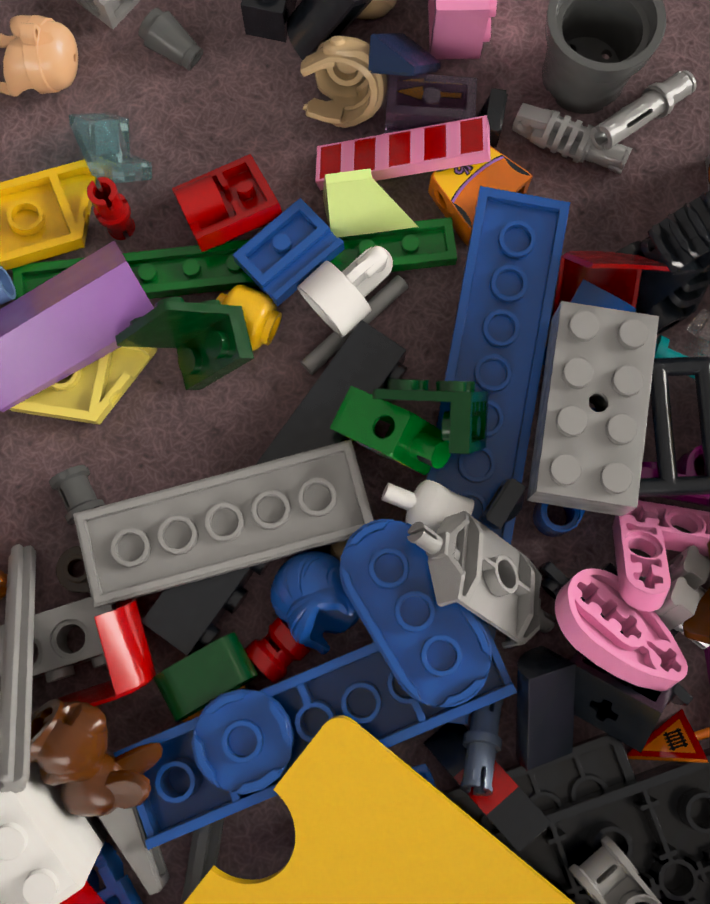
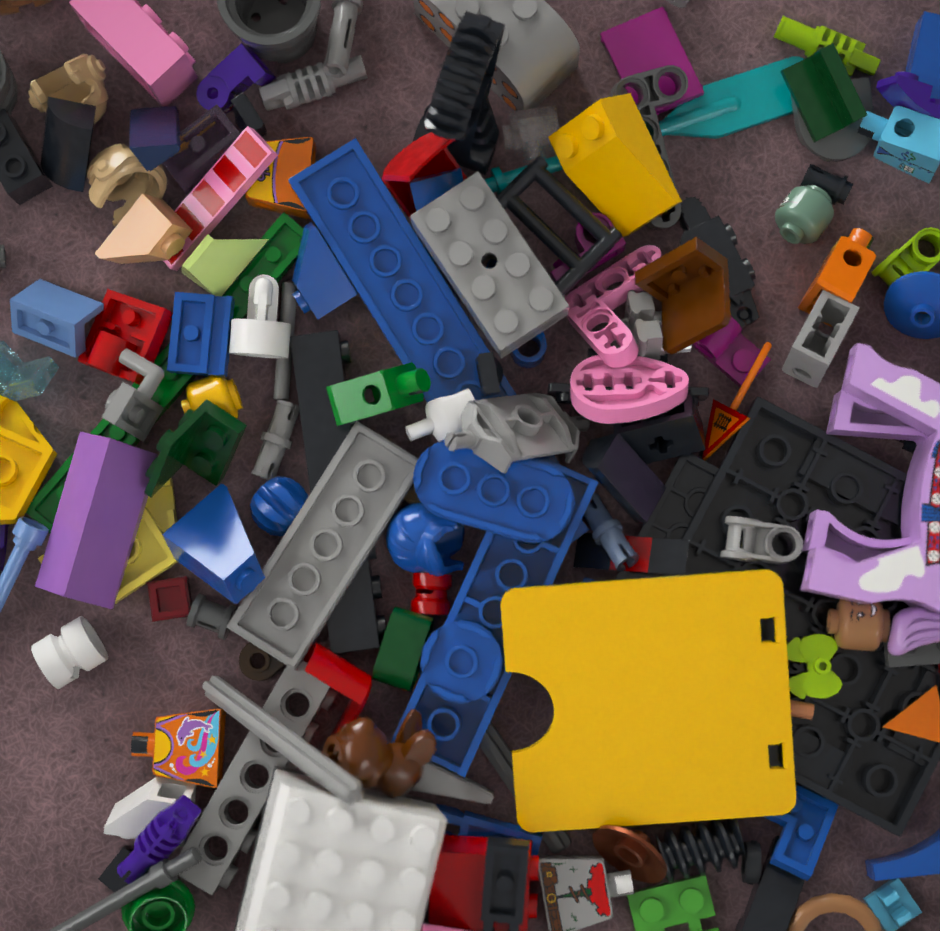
camera: 35 degrees left, 5 degrees up
(59, 447) = (170, 598): none -> dark red tile
(111, 208) = (56, 412): red pin -> none
(134, 438) = (216, 546): none -> blue slope
(171, 258) = (131, 407): none -> light grey plate
(185, 135) = (53, 316): none -> medium blue panel
(218, 450) = (277, 504): none -> blue piece
(269, 397) = (276, 440): none -> light grey pin
(320, 133) = (145, 233): none -> light nougat slope
(432, 293) = (319, 276): none -> blue slope
(465, 422) = (420, 347): dark green bracket -> none
(515, 71) = (232, 78): none -> dark purple leg

